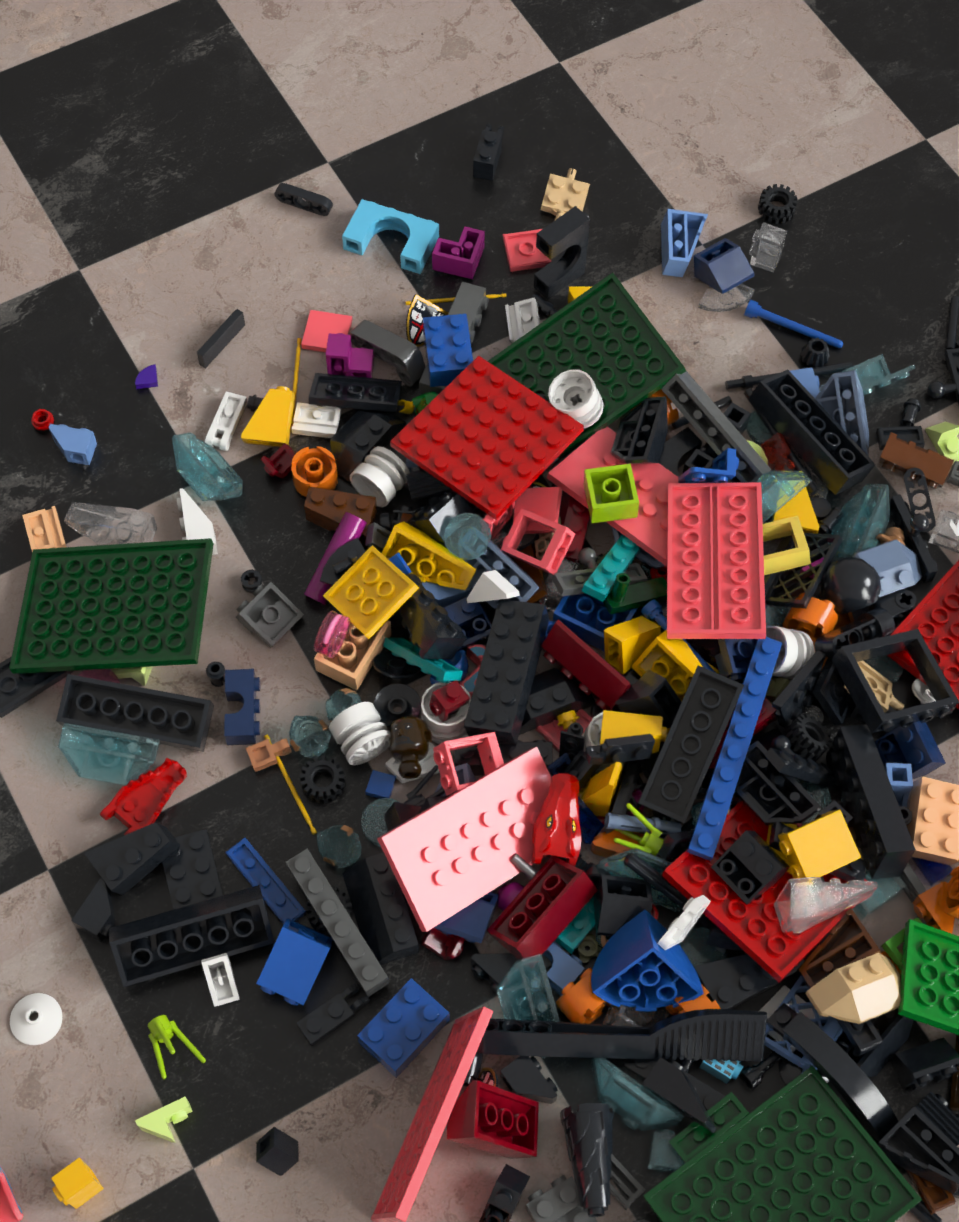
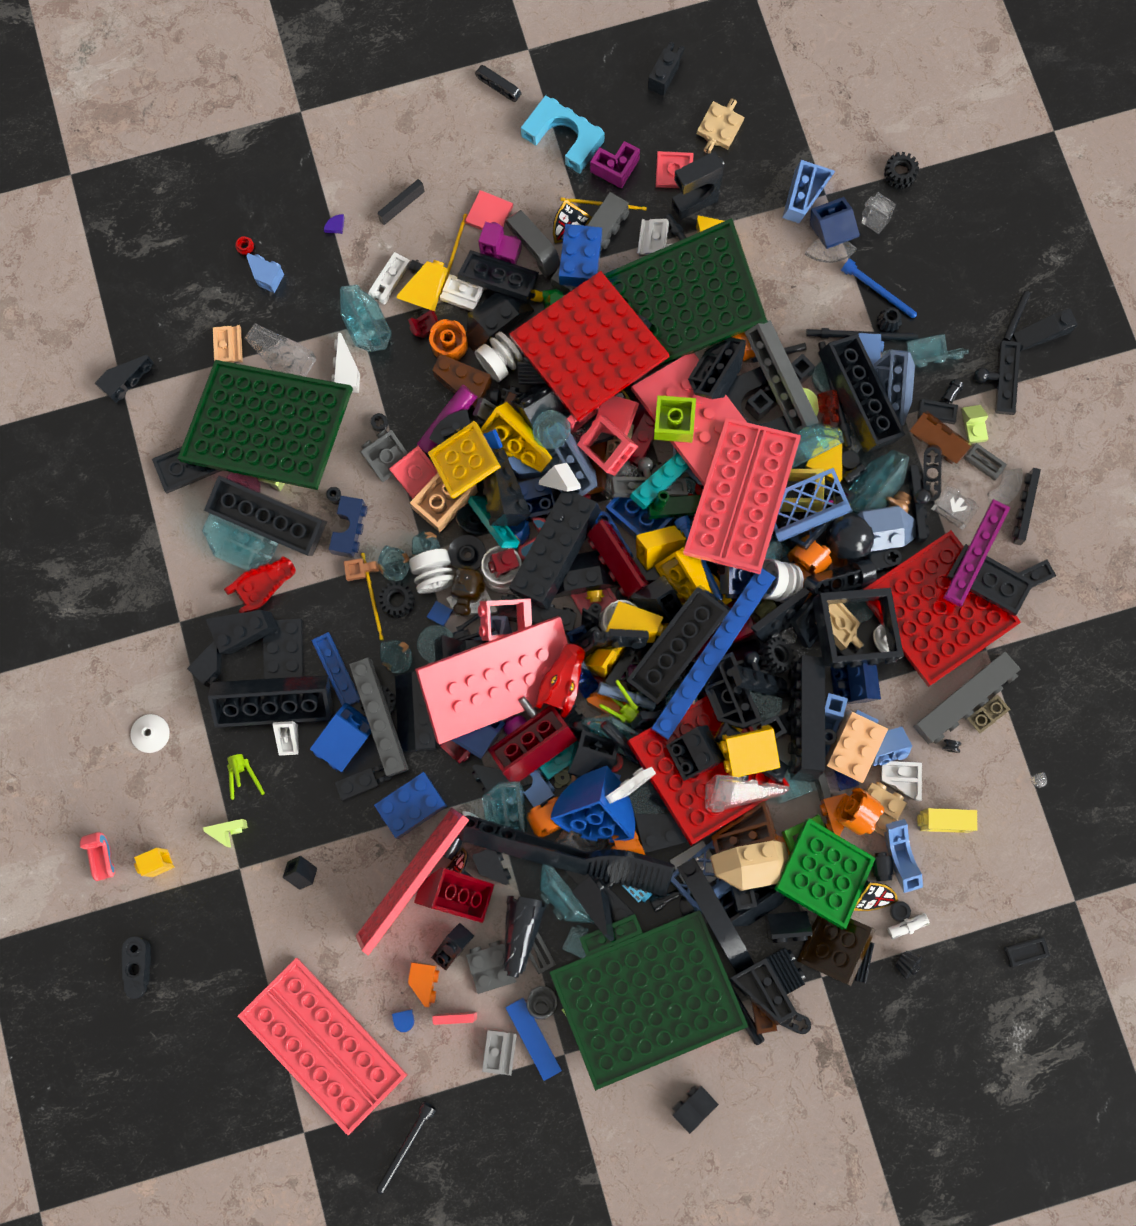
camera: 20 degrees right, 15 degrees up
(303, 624) = (414, 471): none -> coral tile
(331, 634) = (425, 489): clear pink head -> none
(577, 396) = (670, 327): white wheel -> none
(722, 470) = (776, 413): blue bracket -> none
(809, 568) = (817, 518): none -> medium blue fence

